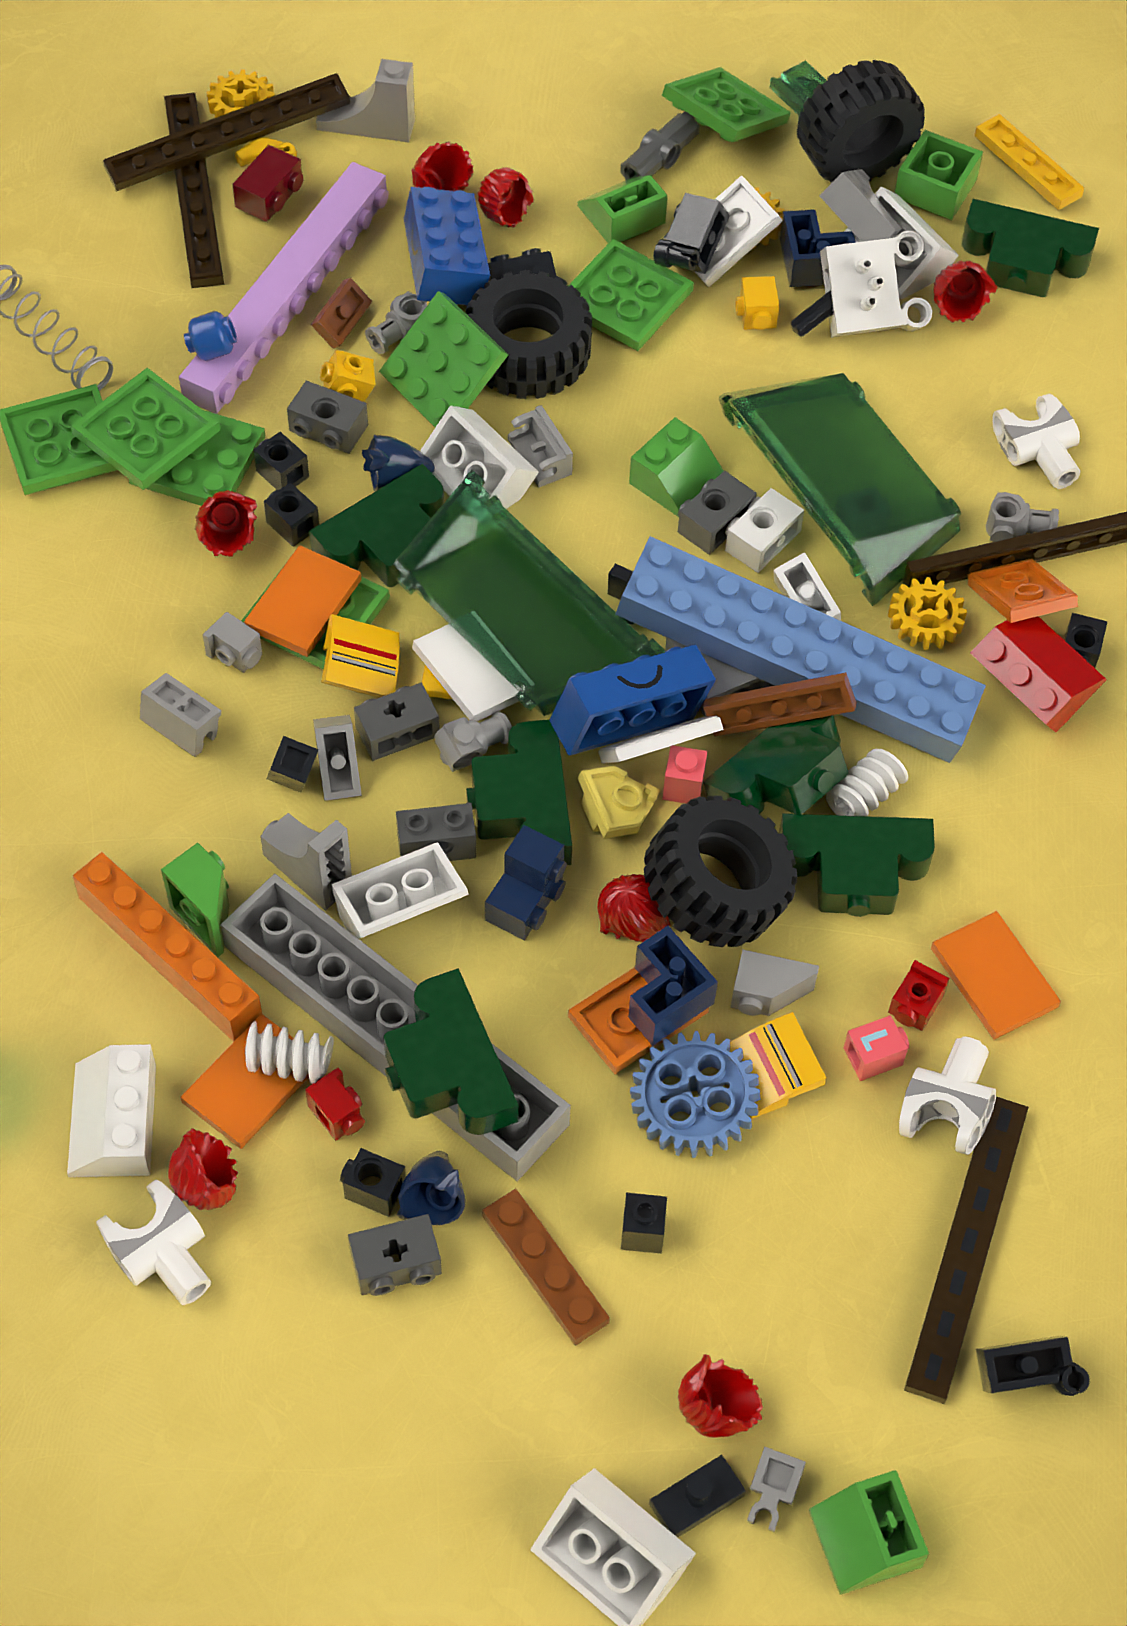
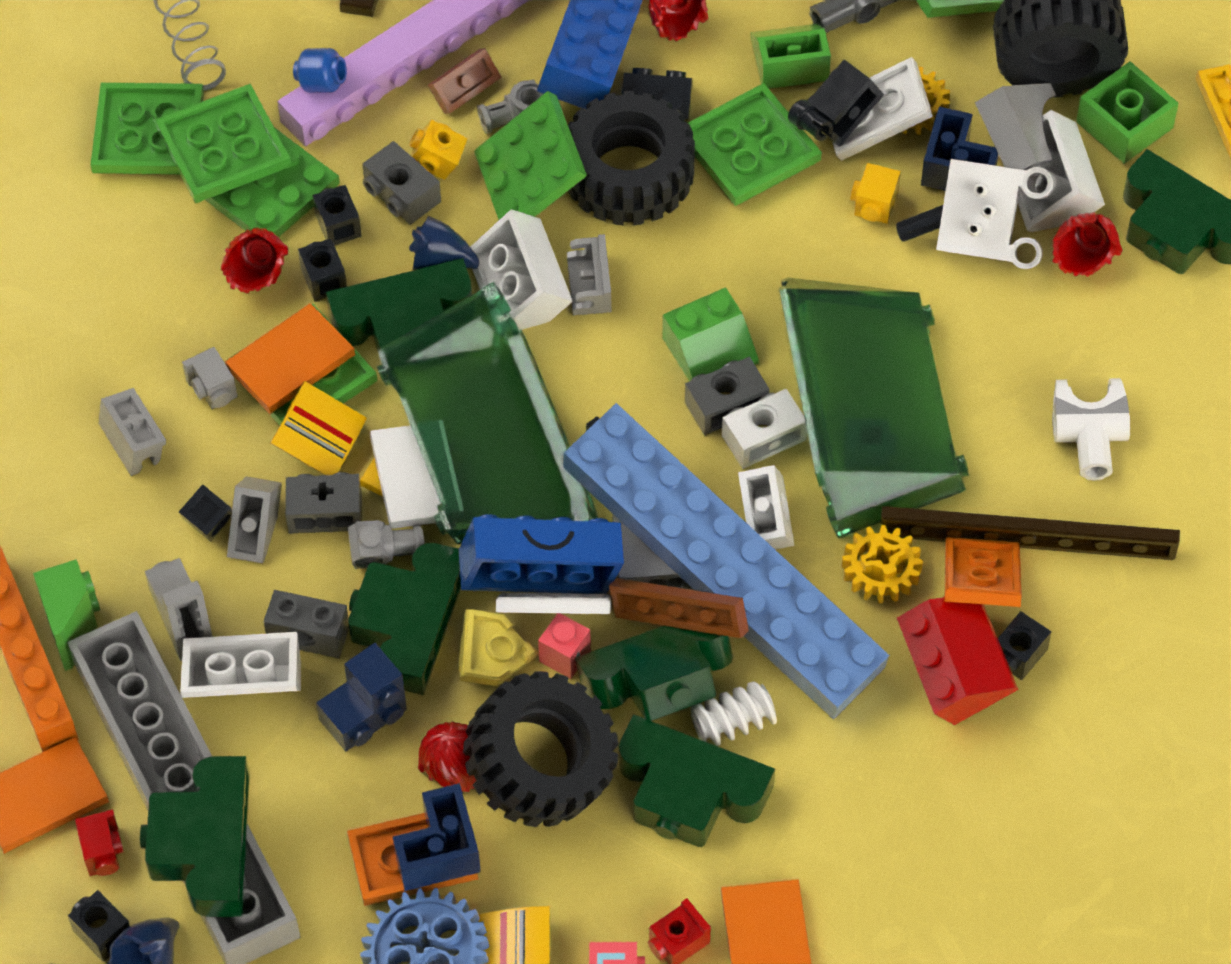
camera: 25 degrees right, 0 degrees up
(287, 1054) = (71, 783): white piece -> none
(770, 983) = (545, 872): light grey slope -> none
(1012, 517) = (1026, 499): light grey connector -> none

